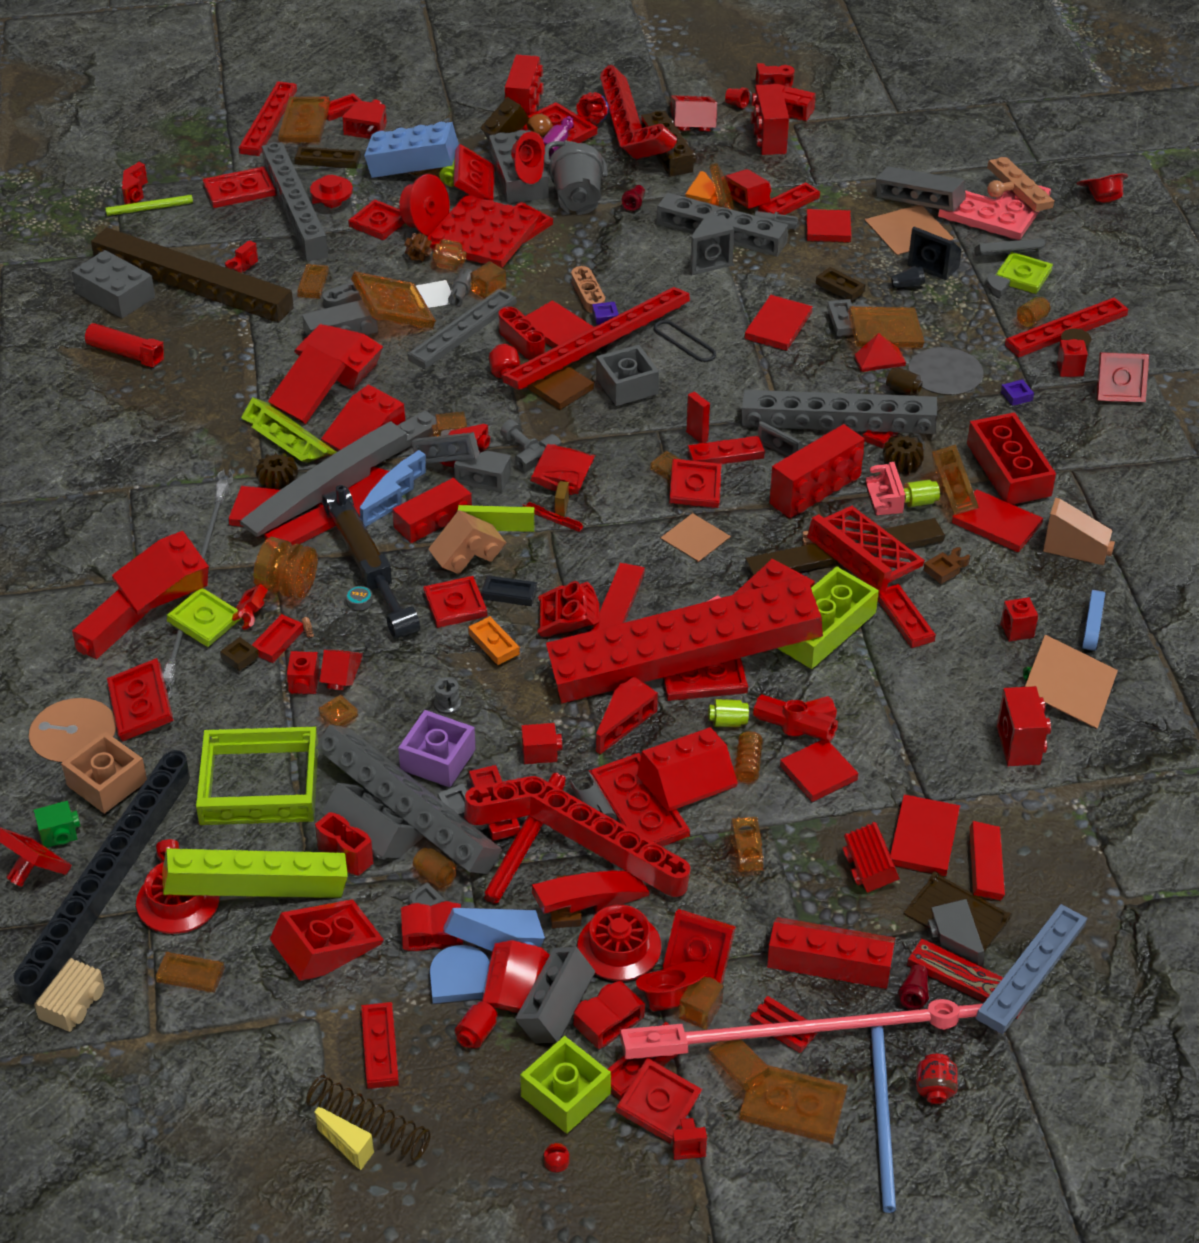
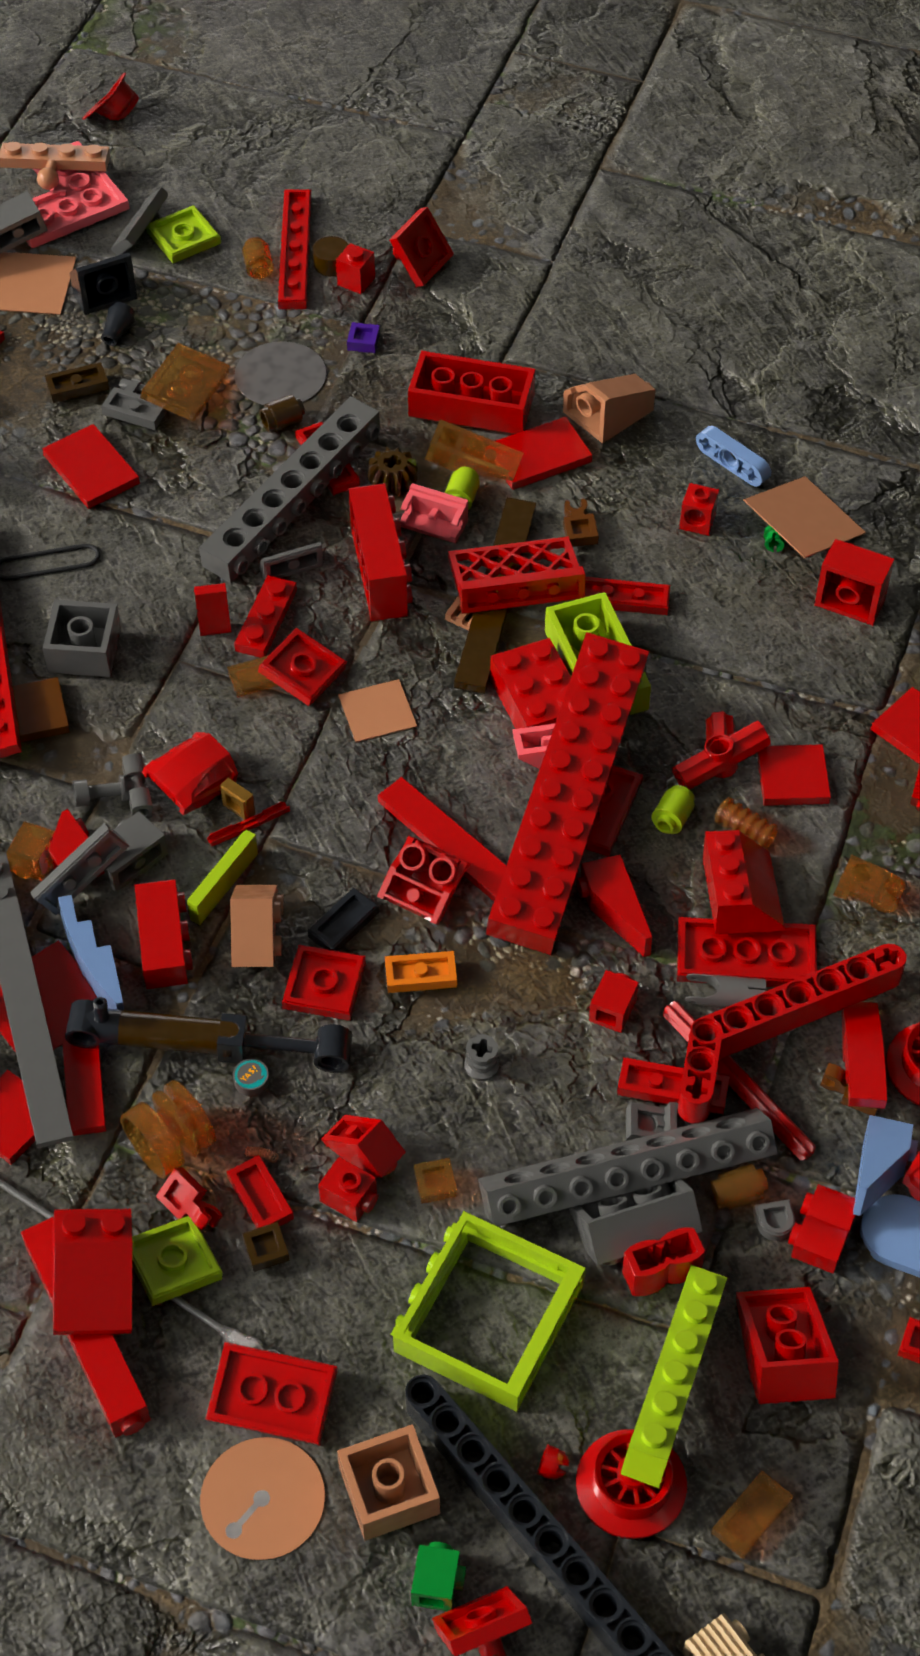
camera: 60 degrees left, 10 degrees up
(437, 748) = (569, 1102): medium lavender brick -> none
(879, 354) = (218, 414): red slope -> none
(997, 284) = (185, 262): dark grey tile -> none

